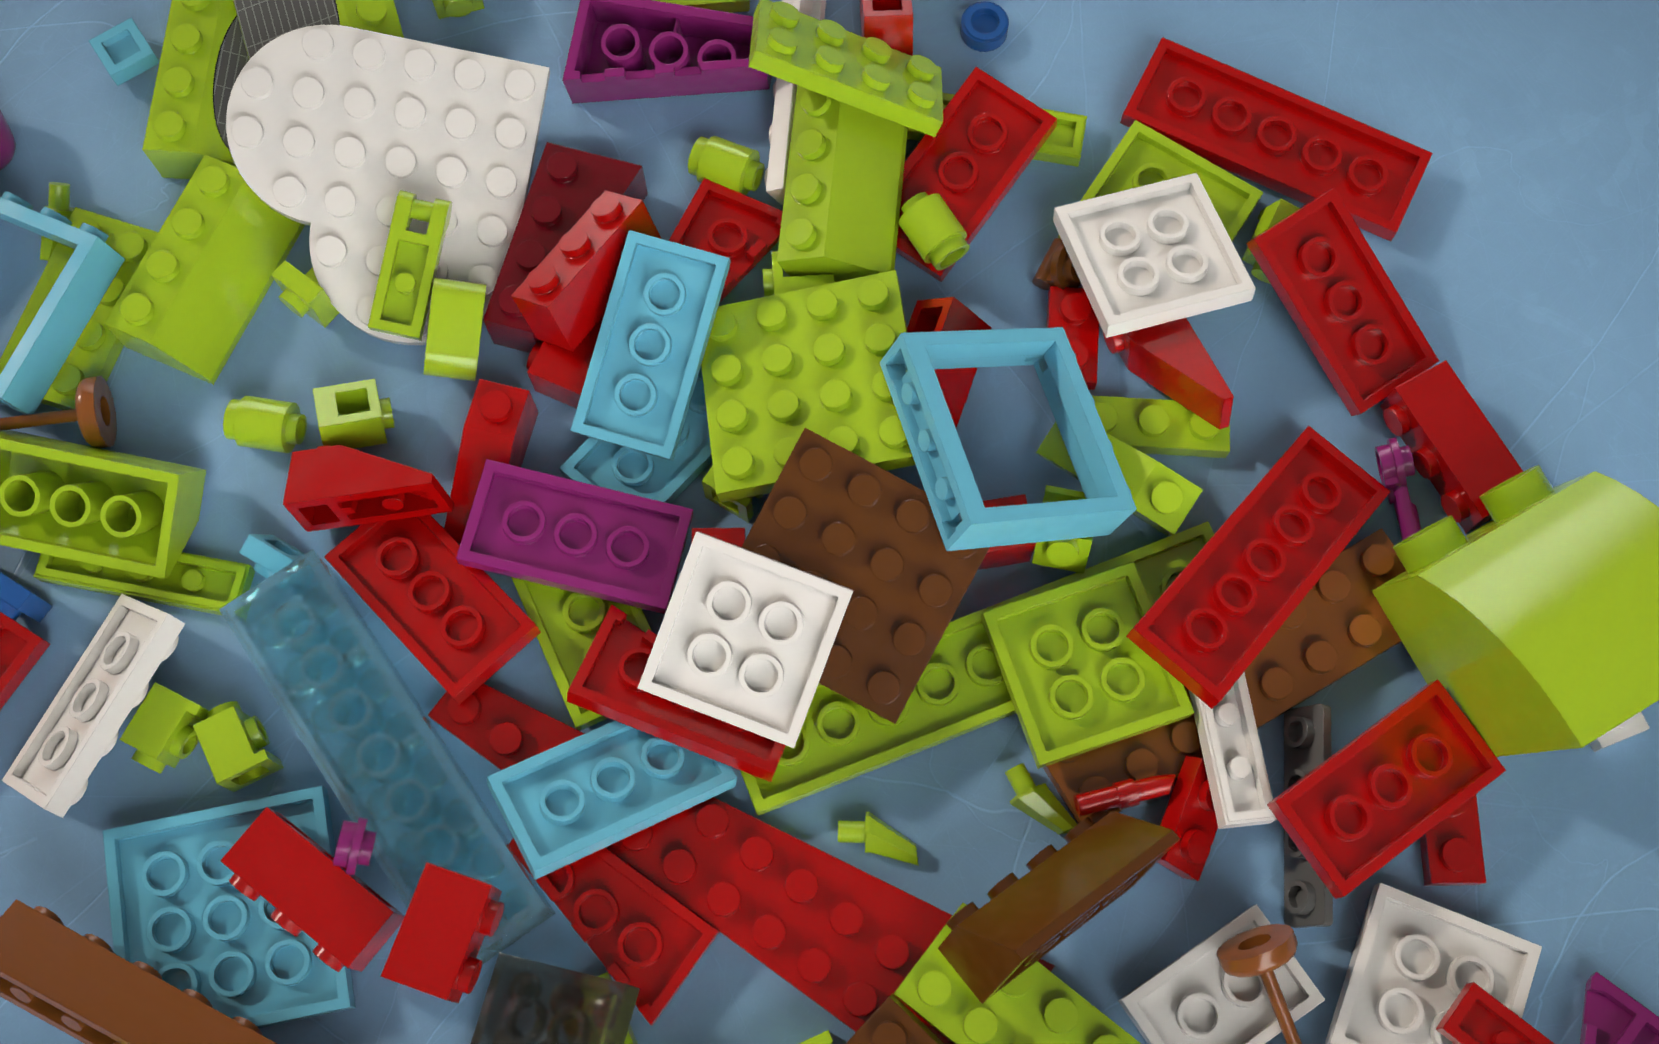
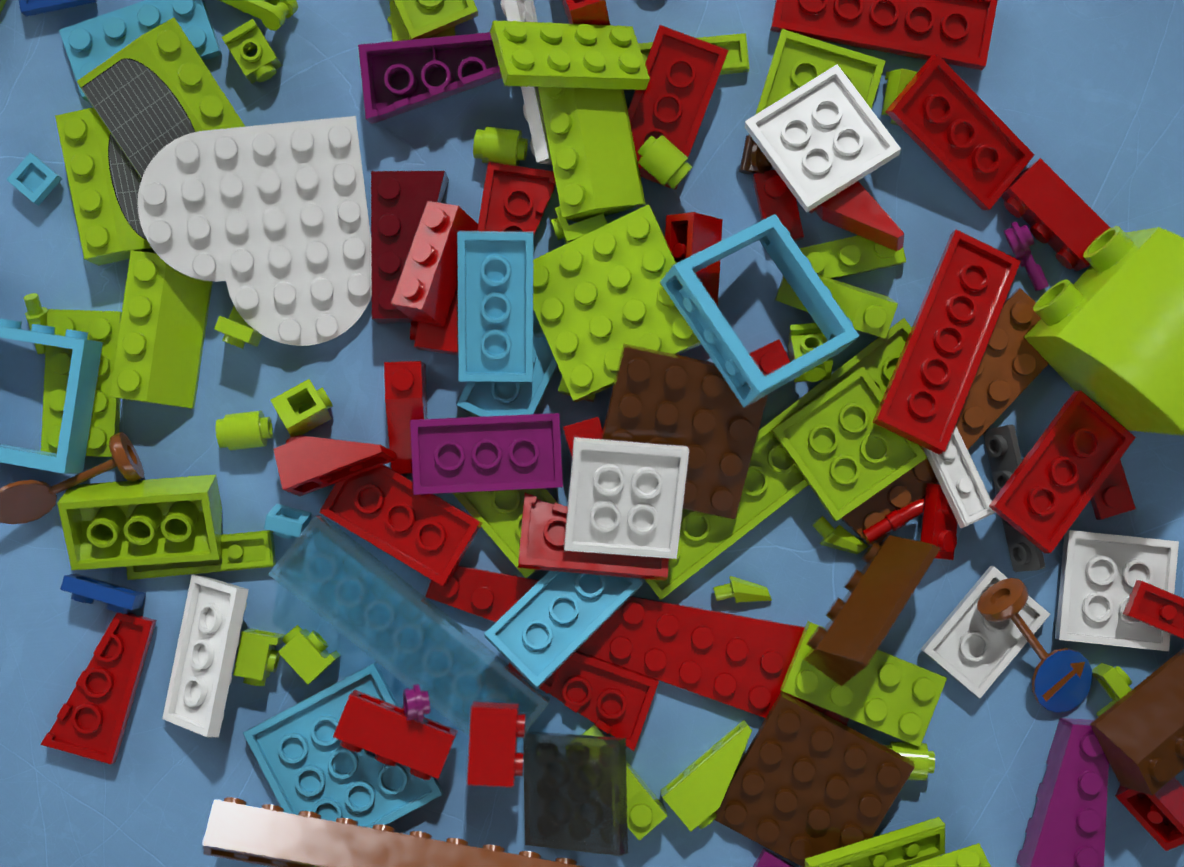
camera: 20 degrees left, 15 degrees up
(409, 267) = (308, 295): lime plate -> none
(454, 329) = (353, 329): lime beam -> none

